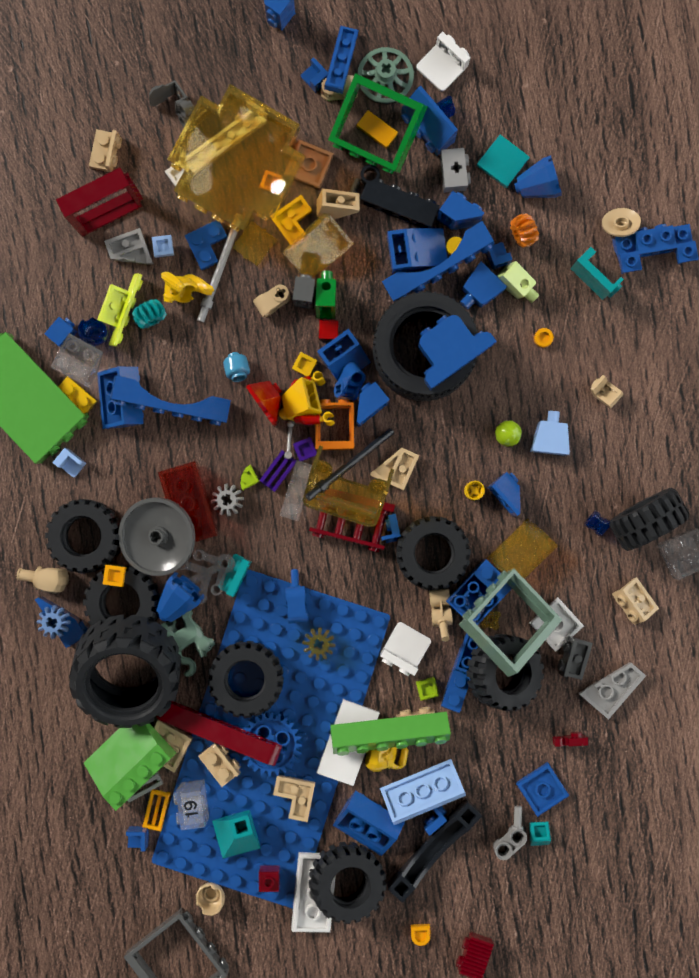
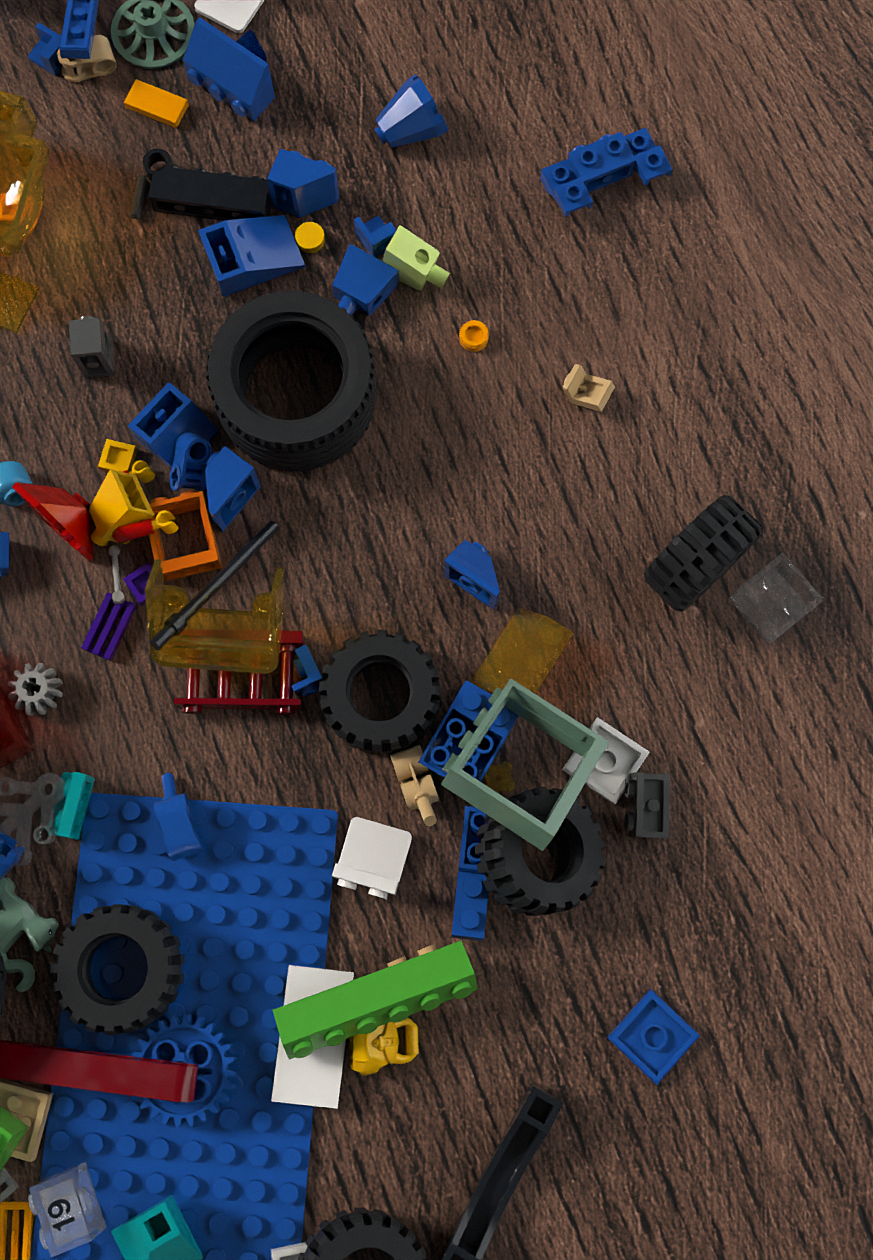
camera: 15 degrees left, 10 degrees down
(220, 763) = (105, 1126): tan bracket -> none
(248, 478) = (64, 649): lime tile -> none
(269, 301) = (44, 375): tan piece -> none
(288, 217) = (48, 253): yellow plate -> none
(293, 500) = (140, 672): clear arch -> none
(299, 791) = (250, 1142): tan plate -> none
(315, 165) = (70, 173): medium nougat tile -> none
(318, 246) = (99, 276): clear yellow slope -> none
(321, 637) = (226, 893): clear yellow gear -> none
(326, 296) = (123, 340): green torso -> none
(328, 329) = (140, 395): red tile -> none
(337, 203) = (115, 213): tan slope -> none
(368, 823) = (379, 1168): blue slope -> none
(402, 463) = (300, 576): tan wing -> none
(420, 110) = (199, 94): green window -> none
(422, 792) = (455, 1089): light blue plate -> none
(427, 688) = (424, 915): lime tile -> none
(434, 822) = (488, 1137): blue bracket -> none
(450, 348) = (327, 362): blue brick -> none
(454, 181) = (280, 126): light grey brick -> none
(474, 241) = (331, 217): blue arch -> none
(474, 490) = (421, 577): yellow wheel -> none
(503, 161) = (351, 106): teal tile -> none
(508, 433) = (454, 483): lime piece -> none
(512, 844) = (617, 1137): light grey beam -> none
(524, 230) = (405, 187): orange gear -> none
(539, 833) = (668, 1114): teal slope -> none
(551, 436) = (522, 474): light blue torso -> none
(573, 739) = (684, 937): dark red plate -> none
(593, 277) = (526, 228): teal panel -> none
(597, 523) = (627, 587): clear blue wheel -> none
(613, 689) = (723, 842): light grey wing -> none
(621, 222) = (545, 147): tan dish -> none
(635, 601) = (719, 694): tan bracket -> none

